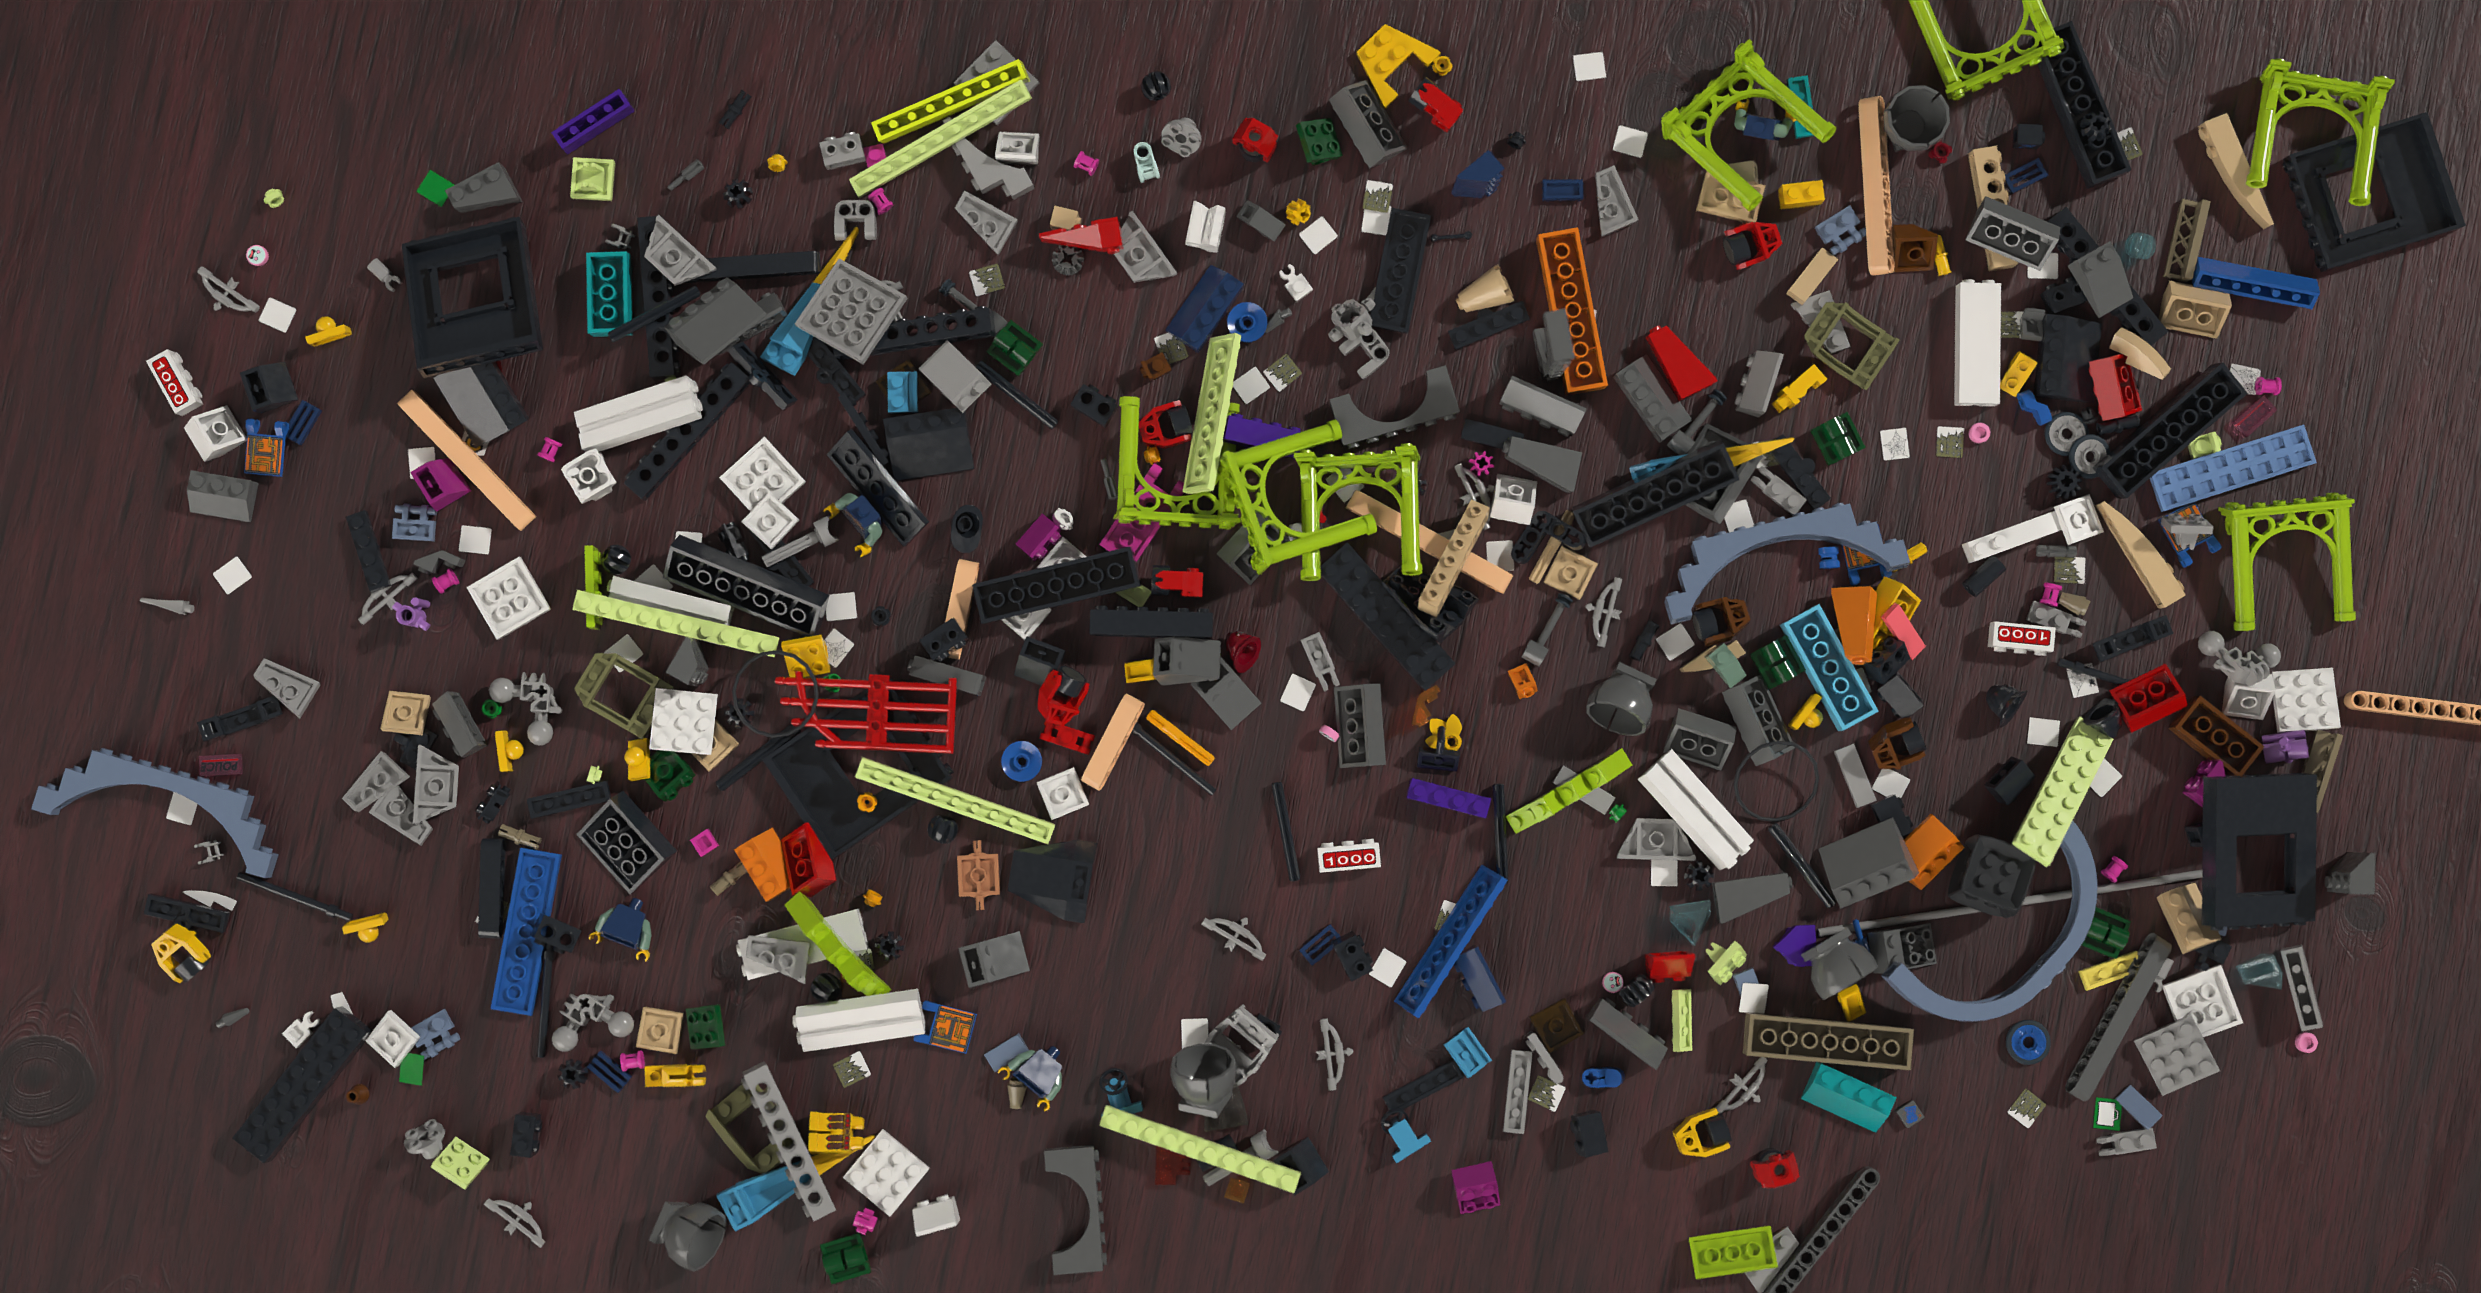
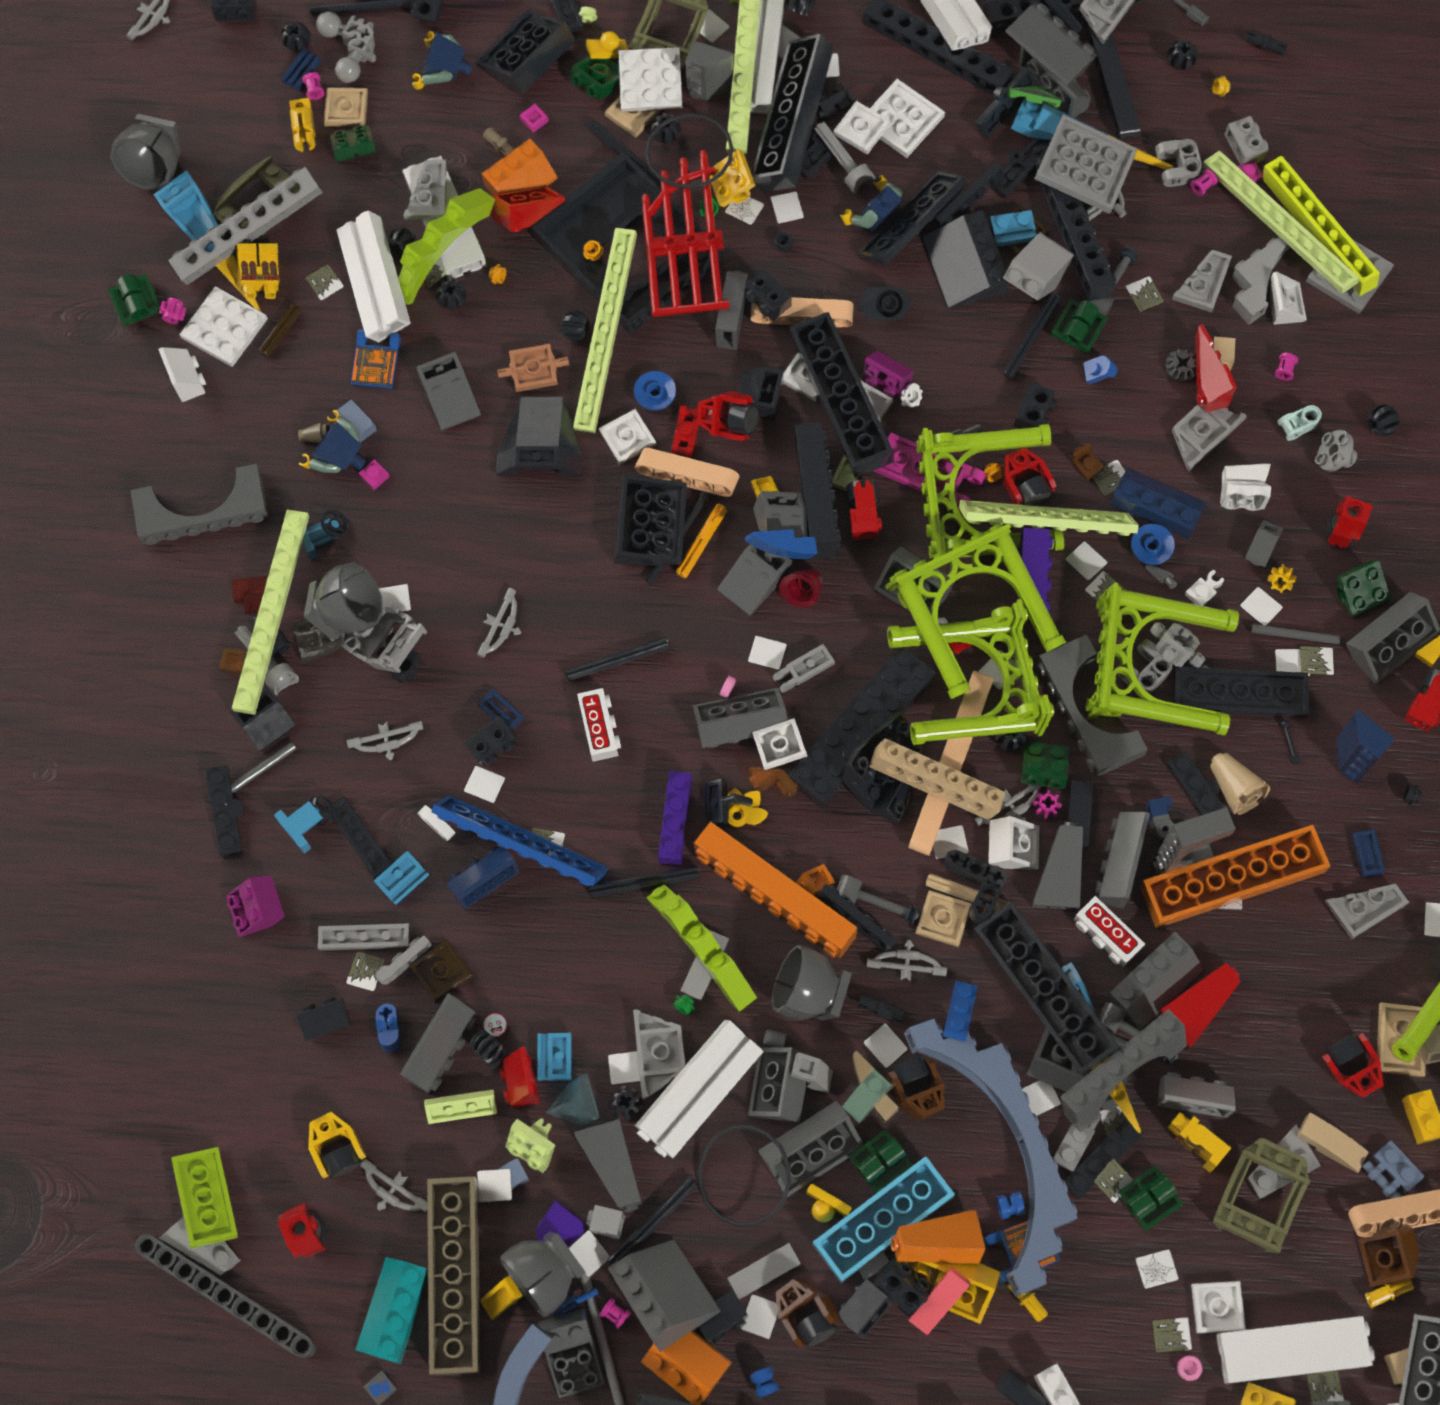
camera: 85 degrees right, 15 degrees down
(760, 345) = (1035, 95): none -> bright green tile
(898, 1116) = (280, 330): none -> dark brown axle
(1062, 337) = (1099, 369): none -> plate
(1066, 1039) = (374, 474): none -> dark pink plate
(1157, 783) = (650, 521): none -> black slope
(1211, 661) = (783, 544): none -> blue slope
(1346, 1175) = (263, 766): none -> dark grey bar
(1350, 210) = (1296, 634): none -> dark grey bar
(1381, 1208) = (224, 810): none -> black hinge
(1396, 397) = (1120, 602): none -> lime arch
(1396, 694) = (779, 744): none -> white slope
(1414, 1022) = (435, 823): none -> white beam
(1444, 458) = (1045, 765): none -> dark green plate
(1507, 366) = (1159, 817): none -> leg
(1530, 717) = (775, 890): none -> orange brick
(1558, 655) = (865, 924): none -> black hinge
(1604, 431) = (1108, 932): none -> white brick
(1648, 932) = (554, 1056): none -> dark azure plate
(1658, 737) = (774, 1039): none -> dark grey hinge
(1659, 572) = (960, 1011): none -> blue plate
(1696, 709) = (813, 1071): none -> light grey slope
(1735, 442) = (1160, 1038): none -> dark grey arch
(1801, 905) = (606, 1222): none -> light grey brick
(1818, 467) = (1112, 1180): none -> sticker
(1822, 923) = (589, 1253): none -> white sticker
(1875, 907) = (615, 1313): none -> dark pink bush
(1933, 399) = (1218, 1307): none -> white tile
(1947, 788) = (761, 1377): none -> blue wheel

